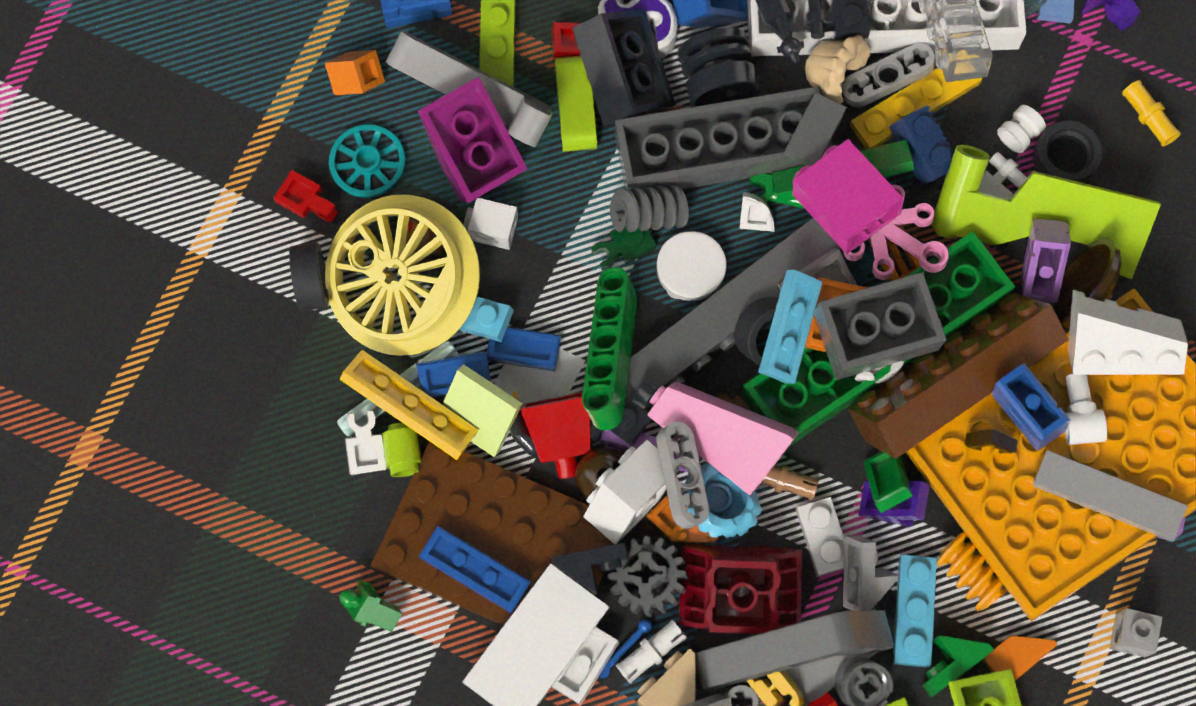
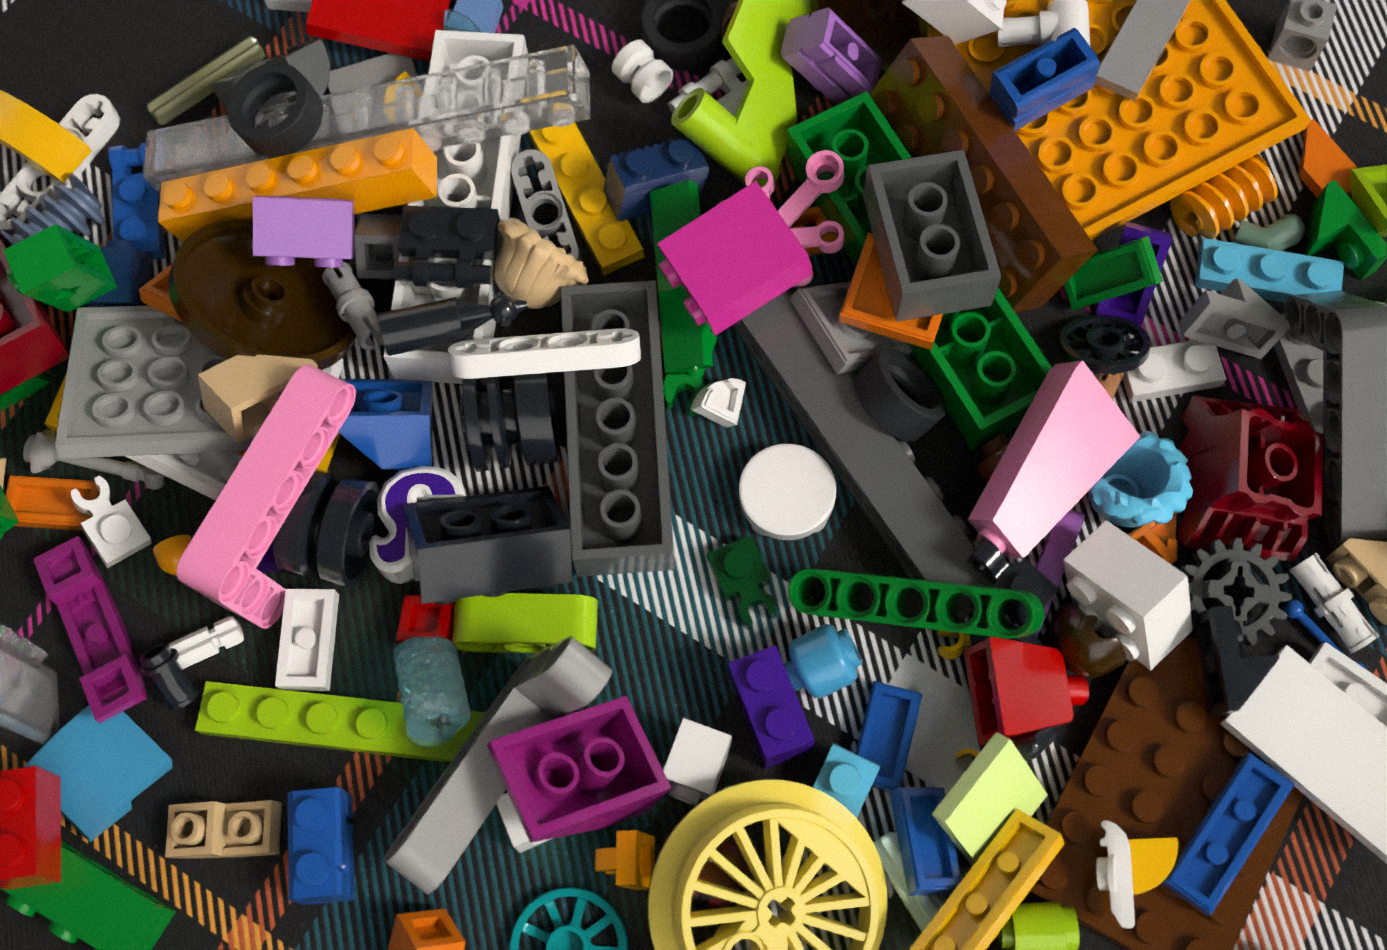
camera: 80 degrees left, 5 degrees down
(424, 185) = (630, 859): none -> light orange tile
(439, 491) = (1115, 873): none -> white piece
(449, 515) = (1151, 861): none -> yellow tile
(519, 46) = (431, 689): none -> clear light blue piece
(533, 266) = (770, 707): none -> dark purple brick
(569, 299) = (823, 661): none -> dark azure head
(649, 208) = (706, 532): dark grey piece -> none
(675, 488) = (1171, 511): light grey beam -> none
(759, 78) = (544, 353): none -> white beam
(790, 326) = (912, 353): medium azure plate -> none
(815, 130) = (628, 295): dark grey tile -> none
(833, 481) = (1105, 343): none -> black wheel
(946, 614) = (1276, 236): none -> sand green arm
(993, 438) = (1079, 138): dark brown tile -> none

